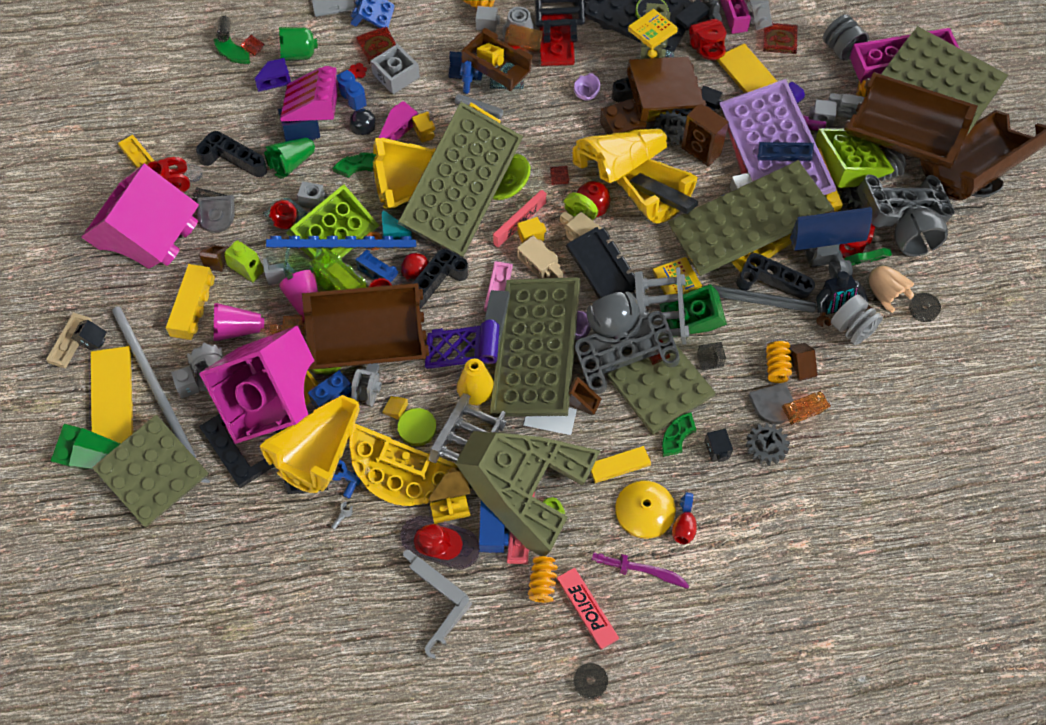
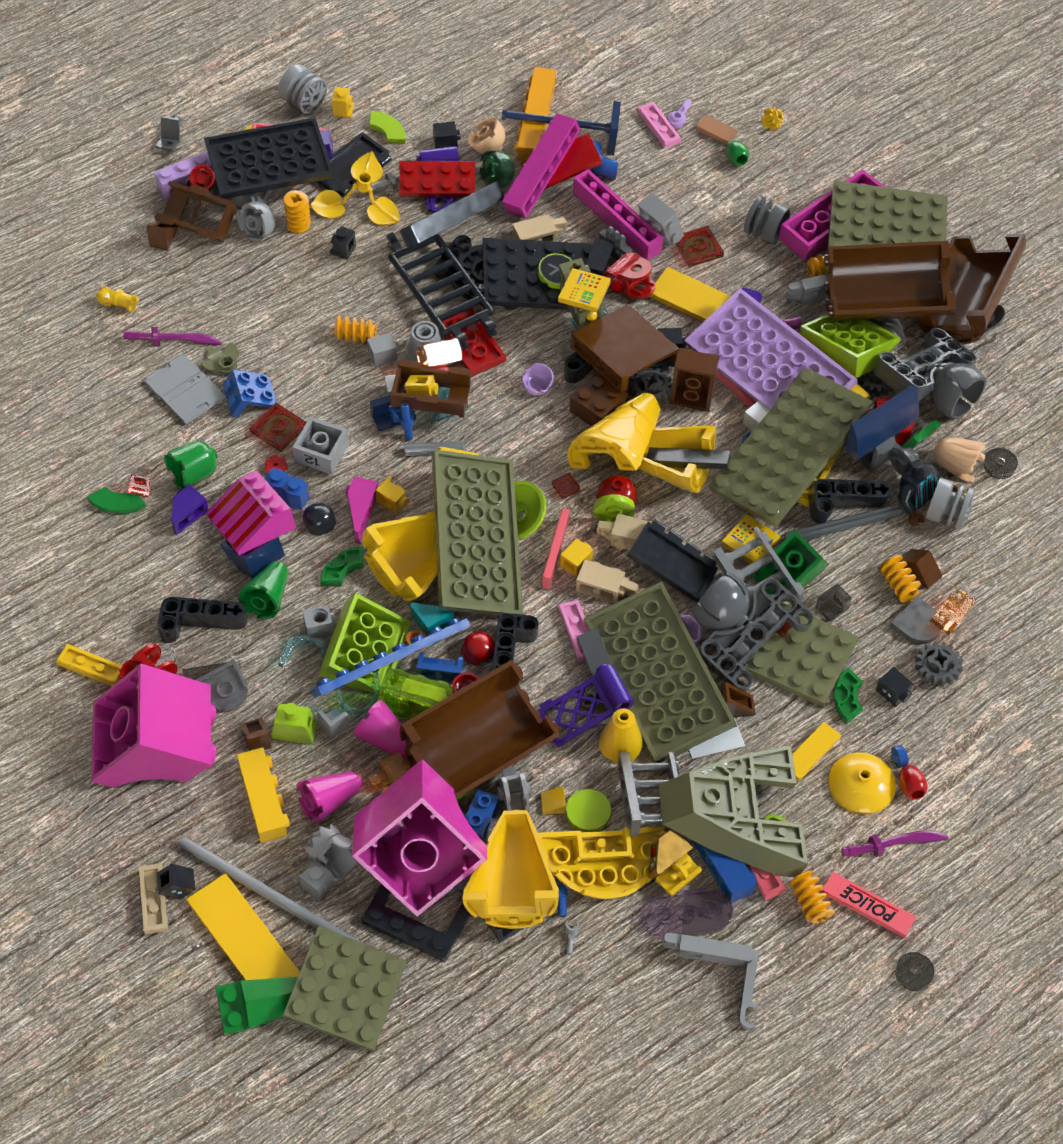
camera: 30 degrees left, 5 degrees down
(223, 28) = (93, 480): clear smoke piece -> none
(283, 214) = (303, 655): red hair -> none
(438, 542) = (686, 913): red piece -> none
(785, 151) = (785, 363): dark blue tile -> none
(824, 111) = (790, 306): light grey brick -> none

